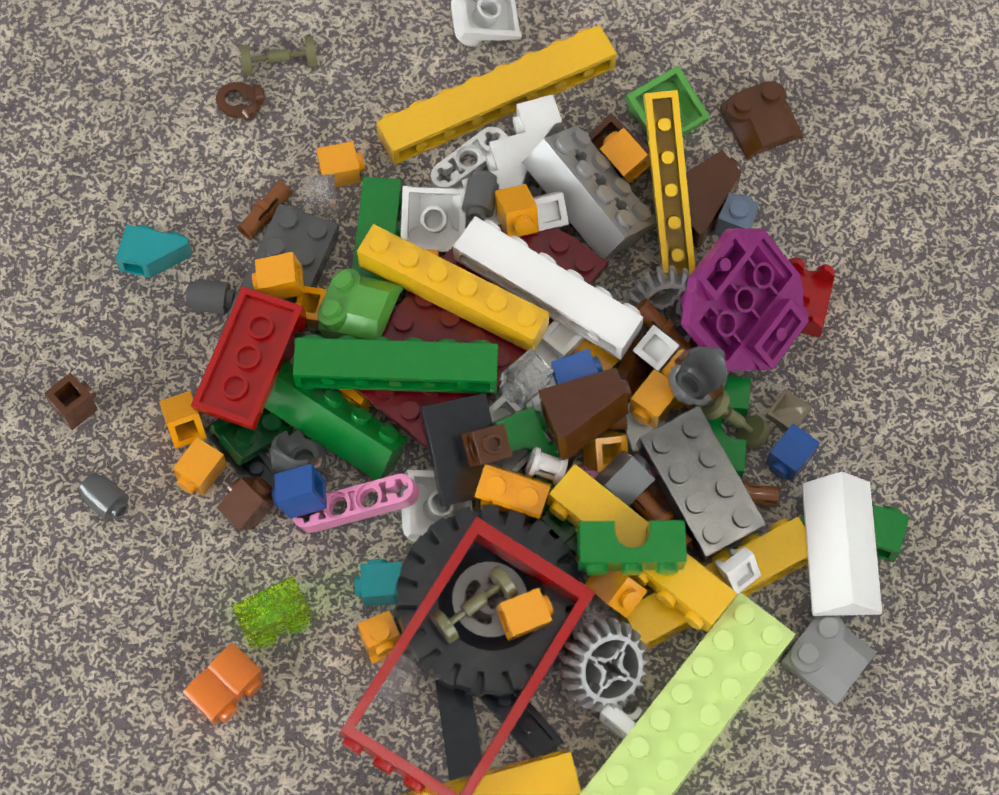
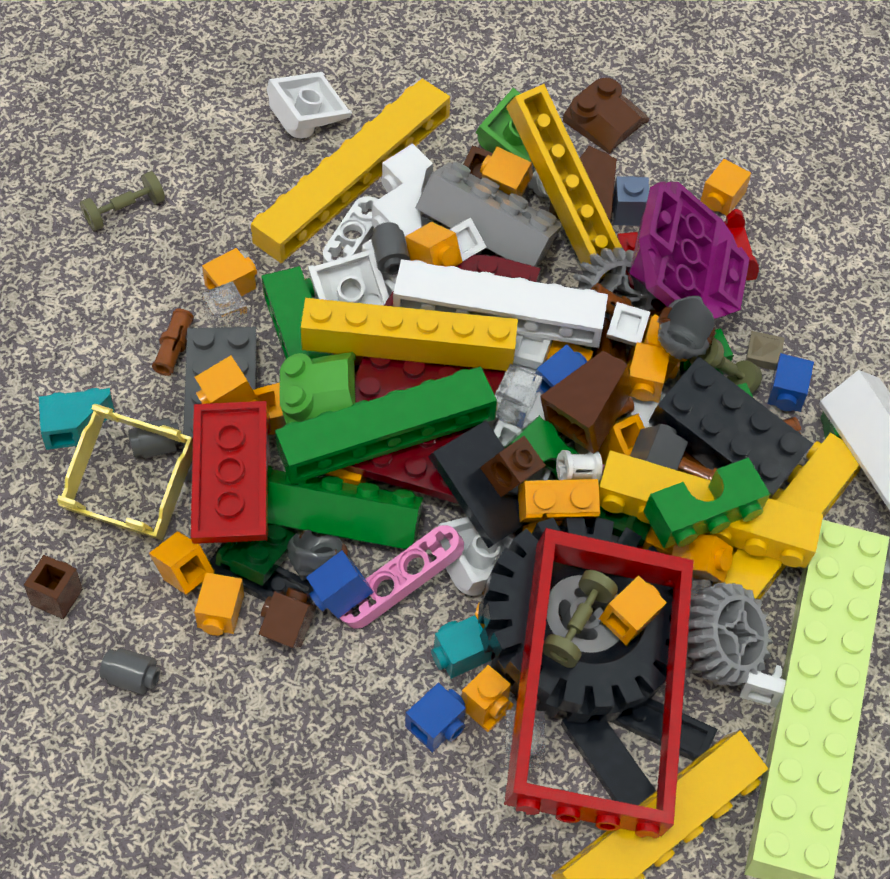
camera: 25 degrees left, 10 degrees down
(138, 296) = (82, 456): none -> light yellow piece
(224, 685) = (346, 811): orange brick -> none
(247, 112) = (114, 243): reddish brown piece -> none
(272, 613) = (363, 719): clear neon green brick -> none
(332, 635) = (437, 717): none -> blue brick
(739, 569) = (807, 493): white tile -> none
(834, 236) = (725, 187): none -> light orange brick

